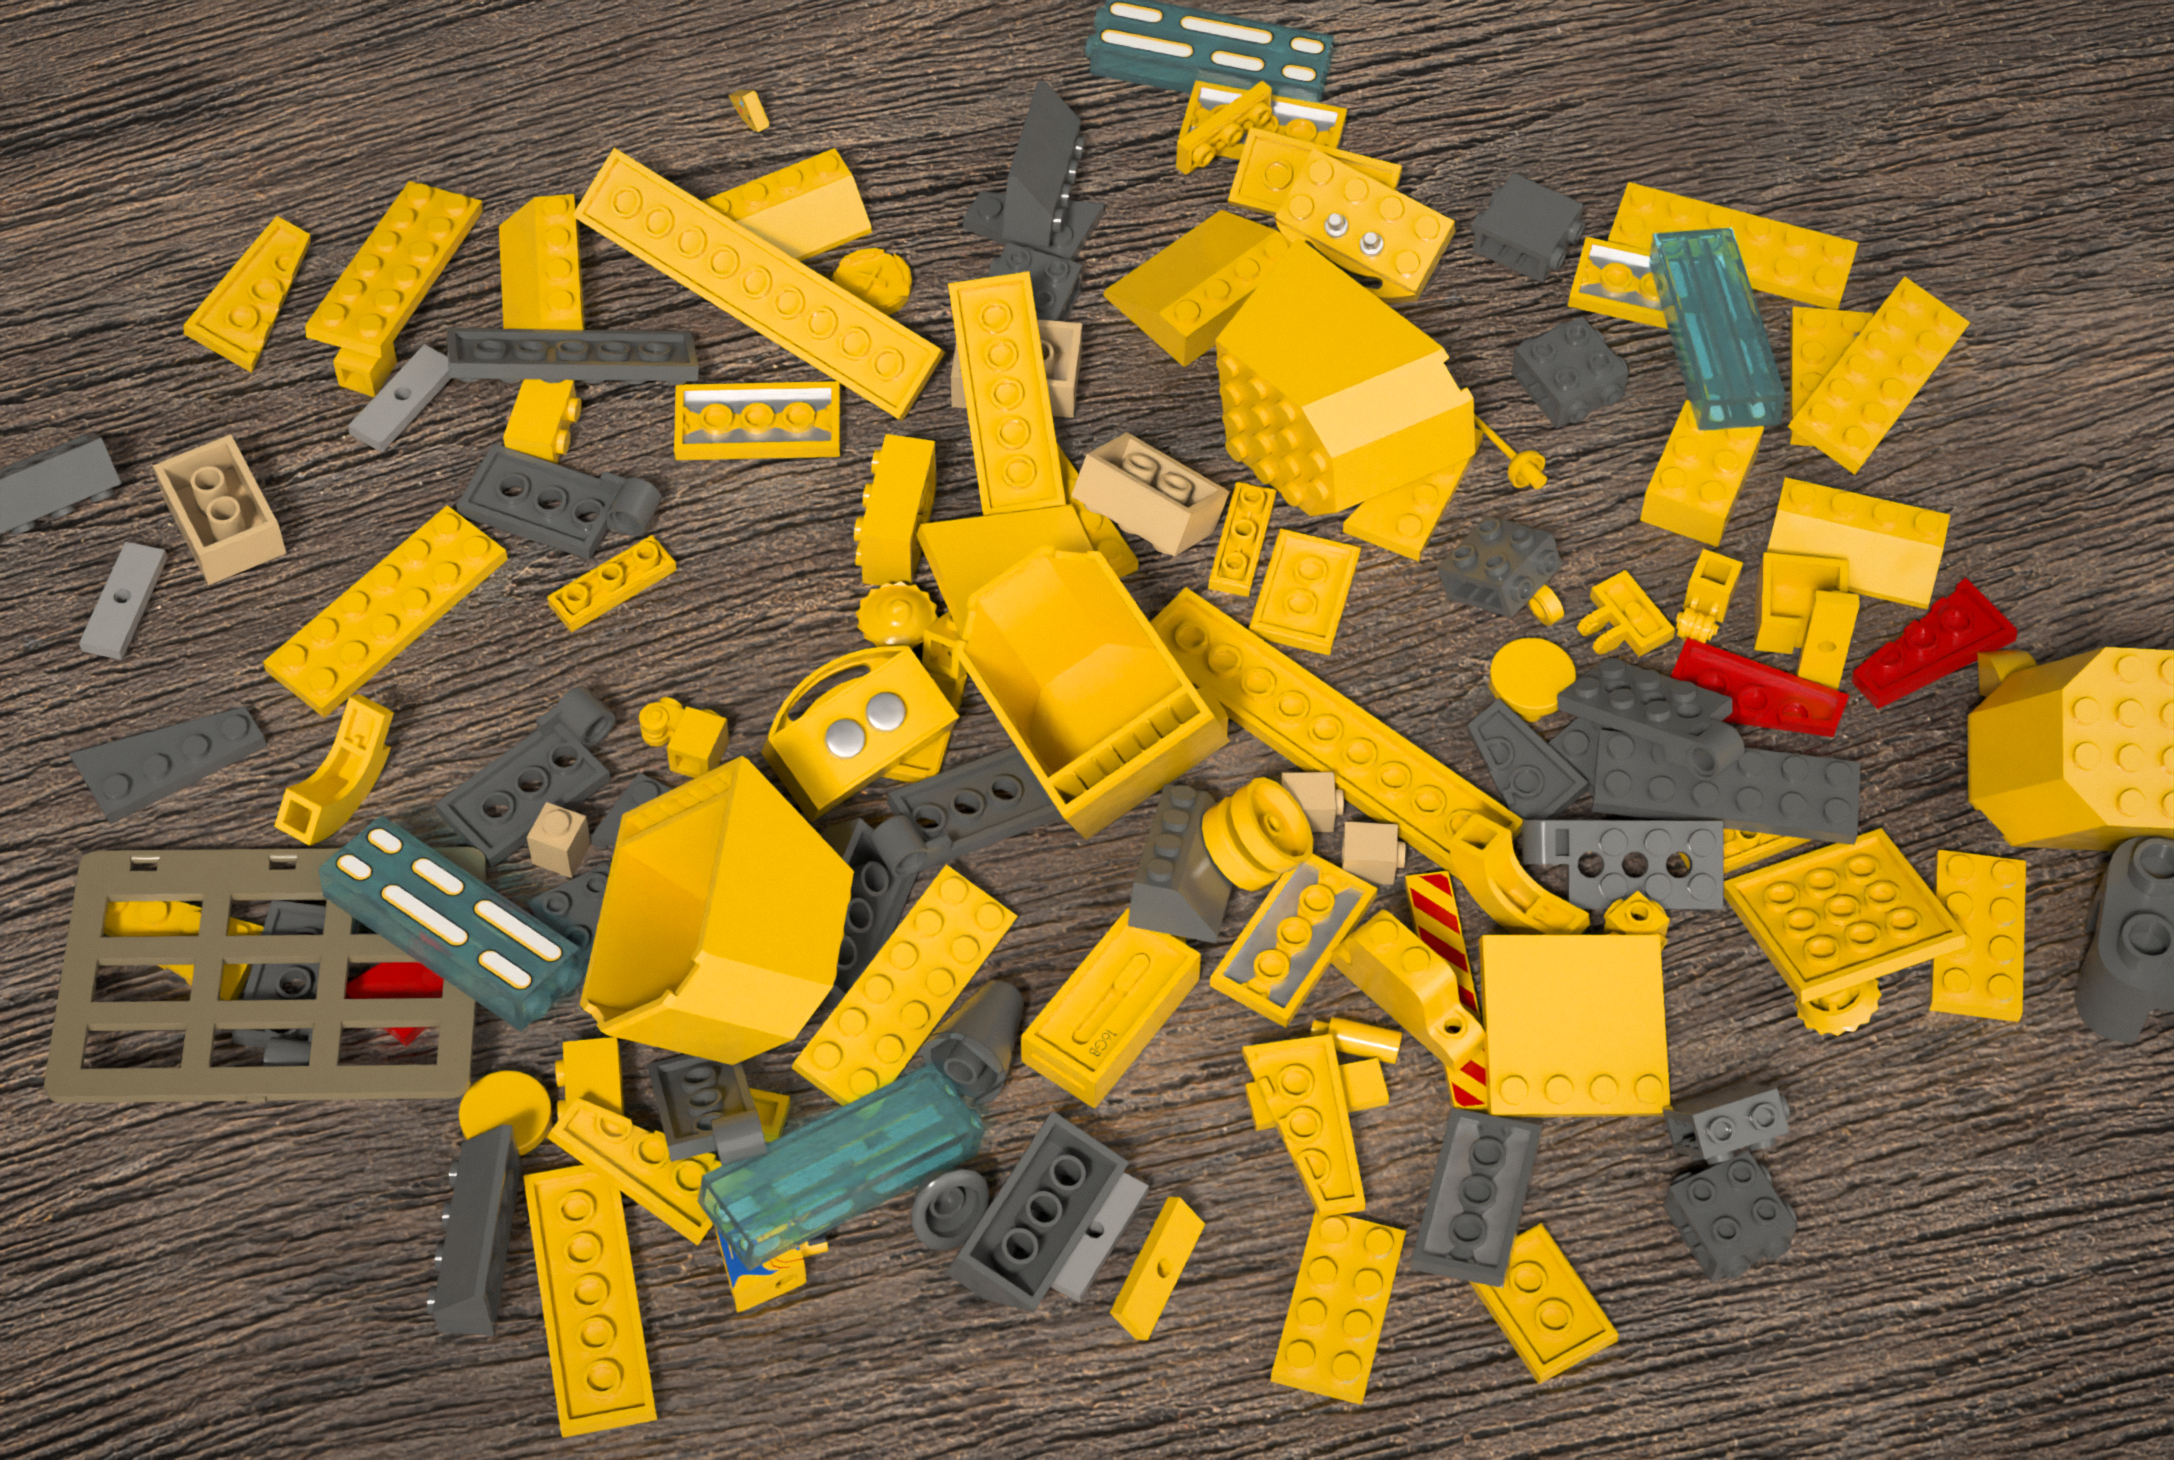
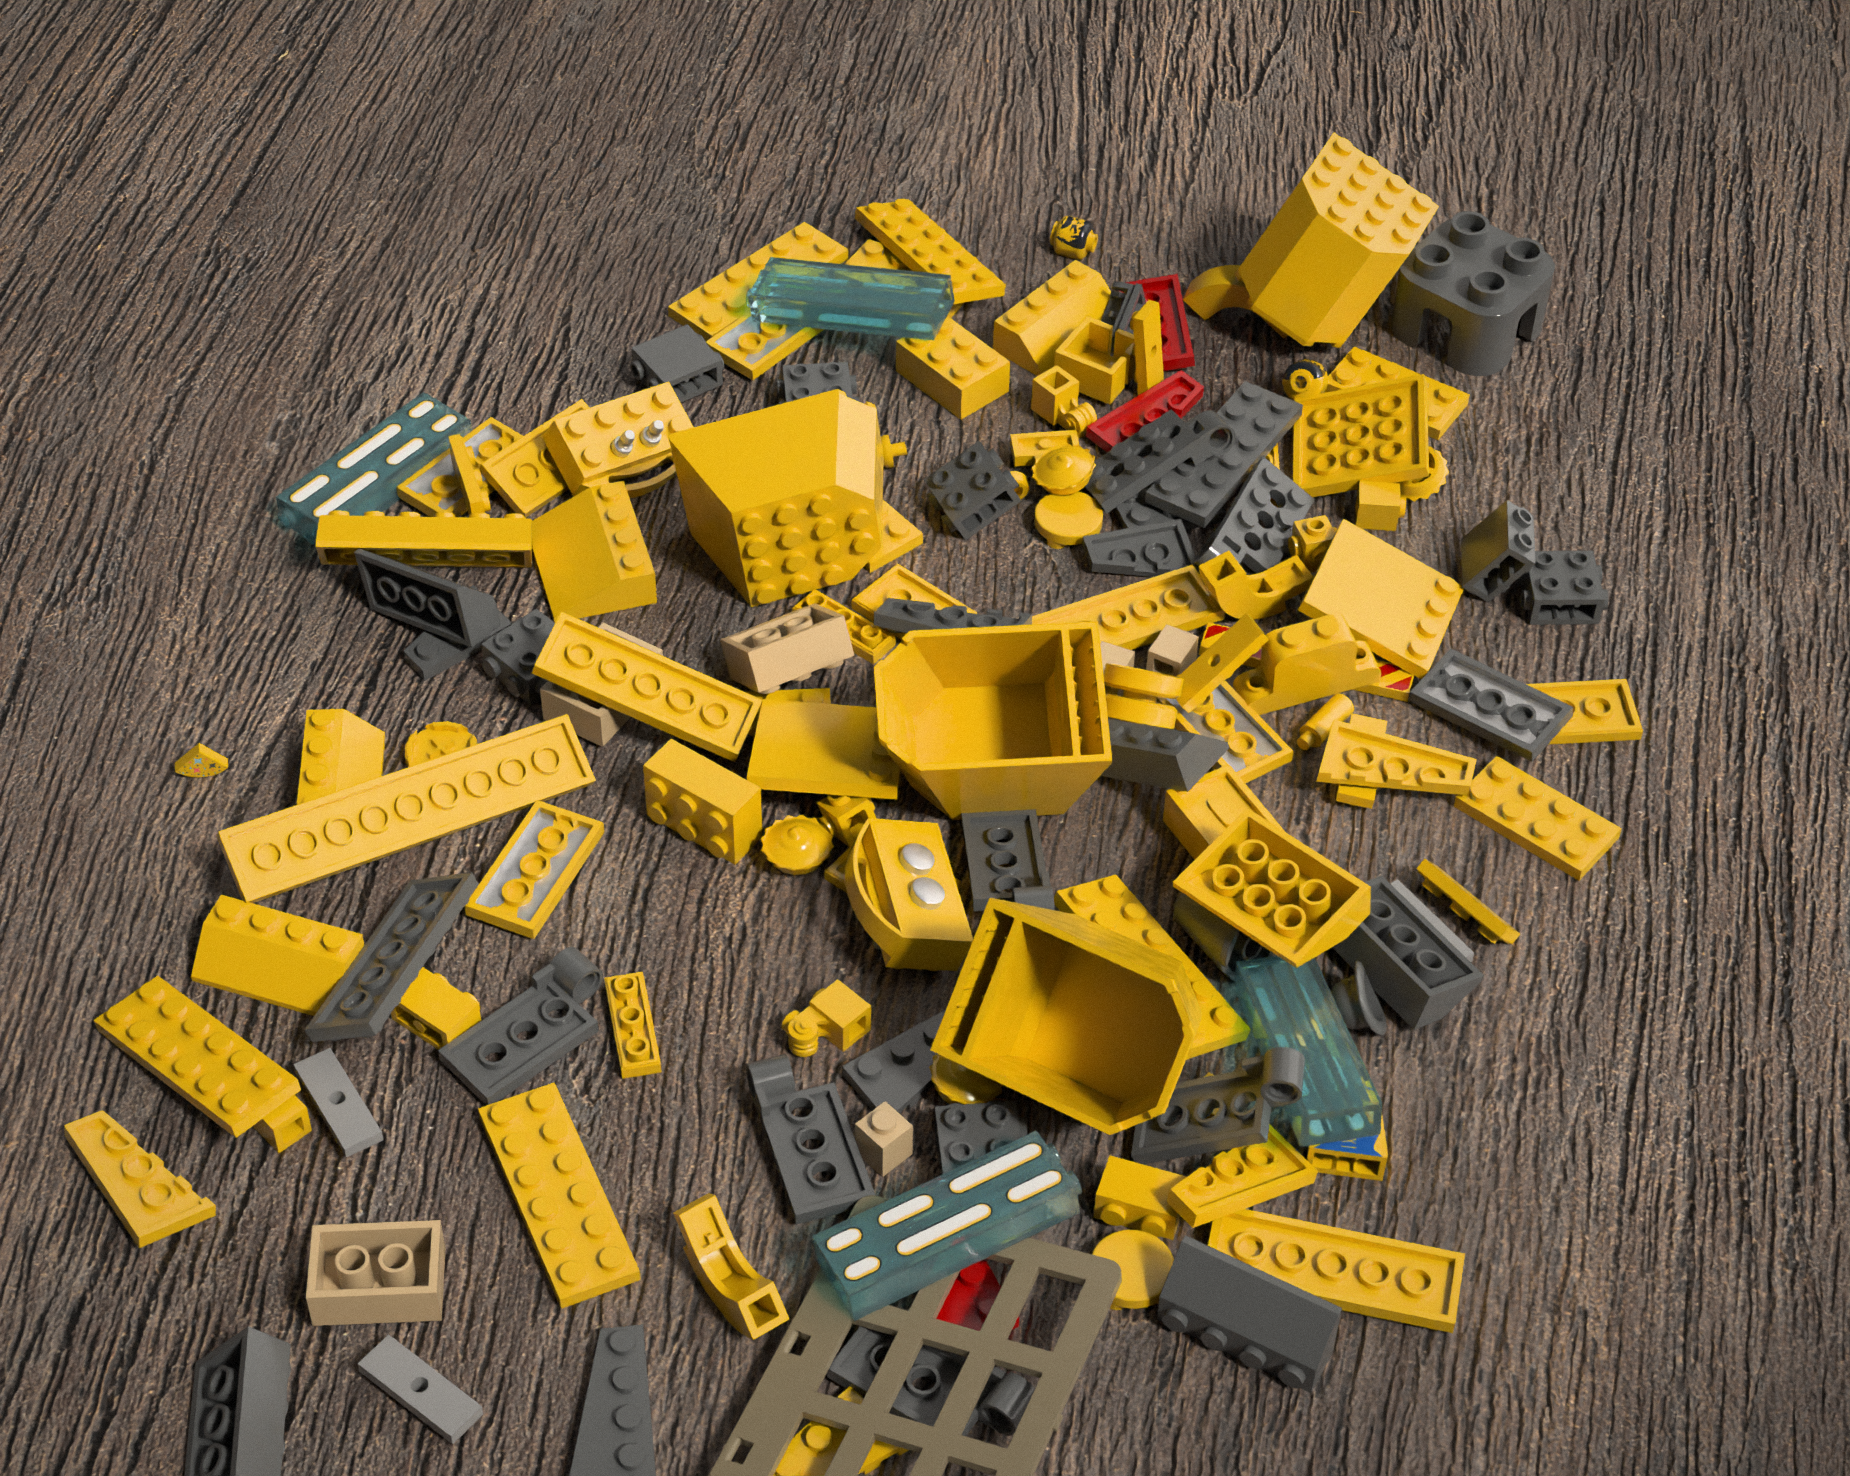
camera: 65 degrees left, 10 degrees down
(998, 1048) = (1276, 890): none -> yellow slope
(1117, 132) = (427, 540): none -> yellow slope
(1277, 633) = (910, 615): none -> dark grey wing
(1339, 887) = (1220, 661): none -> yellow tile
(1585, 637) = (1064, 469): none -> yellow piece
(1748, 977) = (1379, 505): none -> yellow brick
(1897, 604) = (1122, 306): none -> dark grey hinge
(1915, 826) = (1312, 372): none -> yellow head
(2018, 505) = (1073, 237): none -> yellow head

